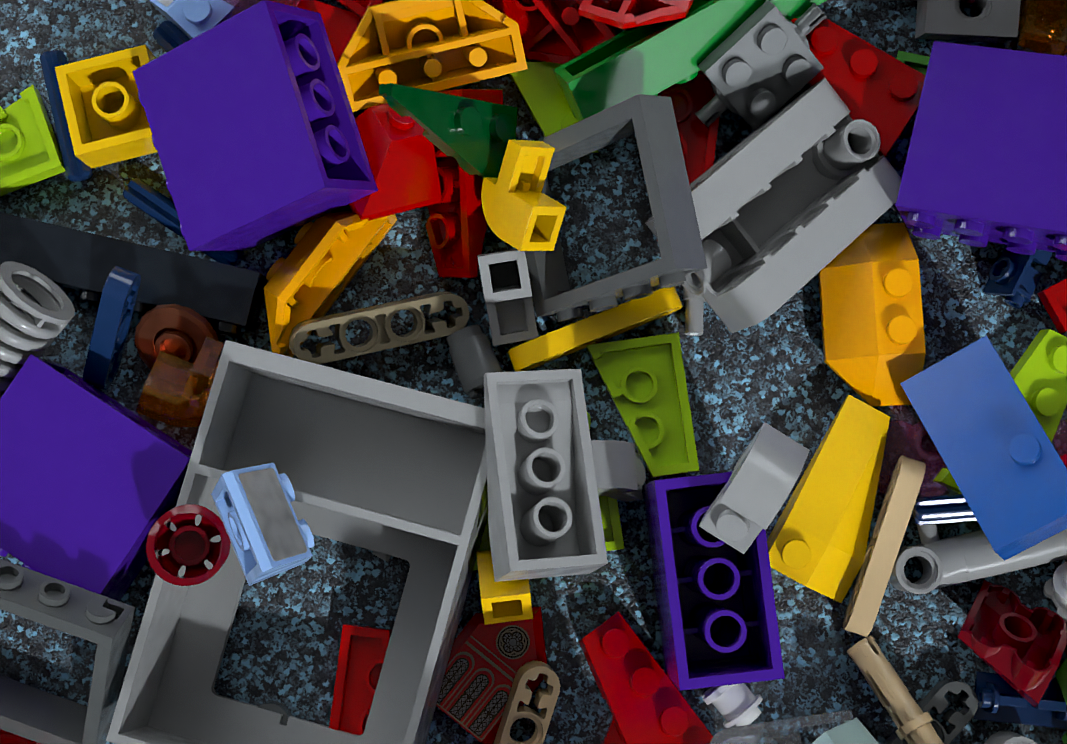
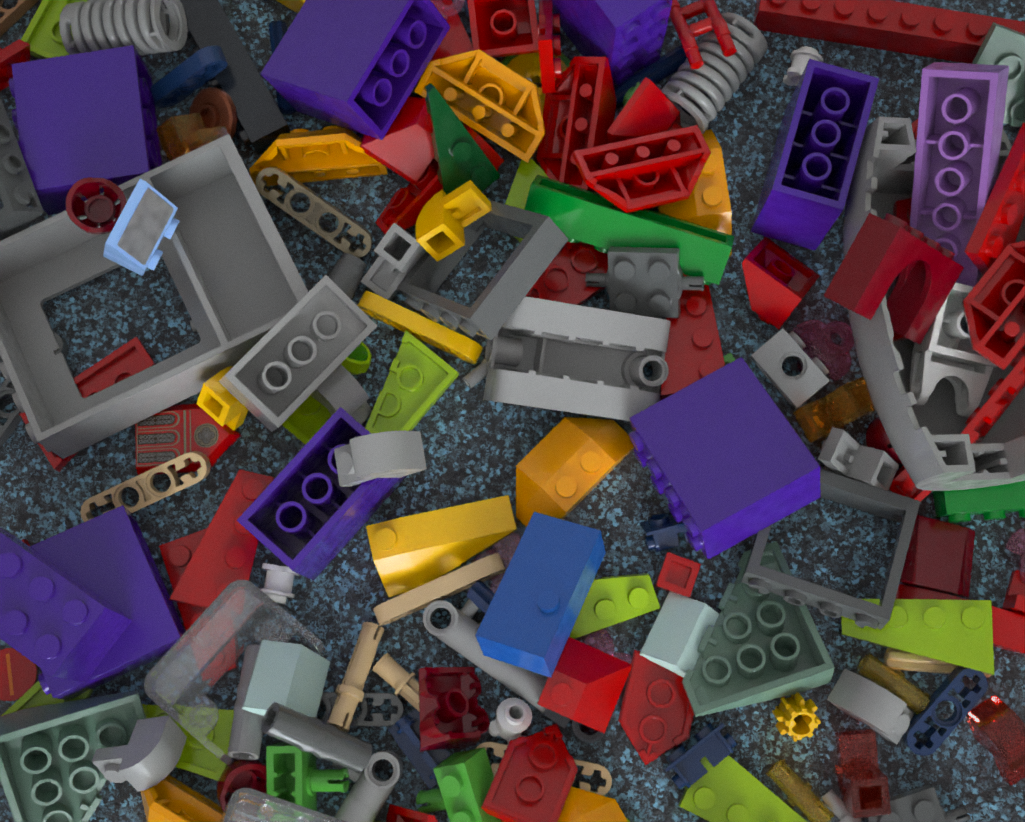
camera: 45 degrees right, 5 degrees down
(940, 664) = (399, 679): none -> tan axle

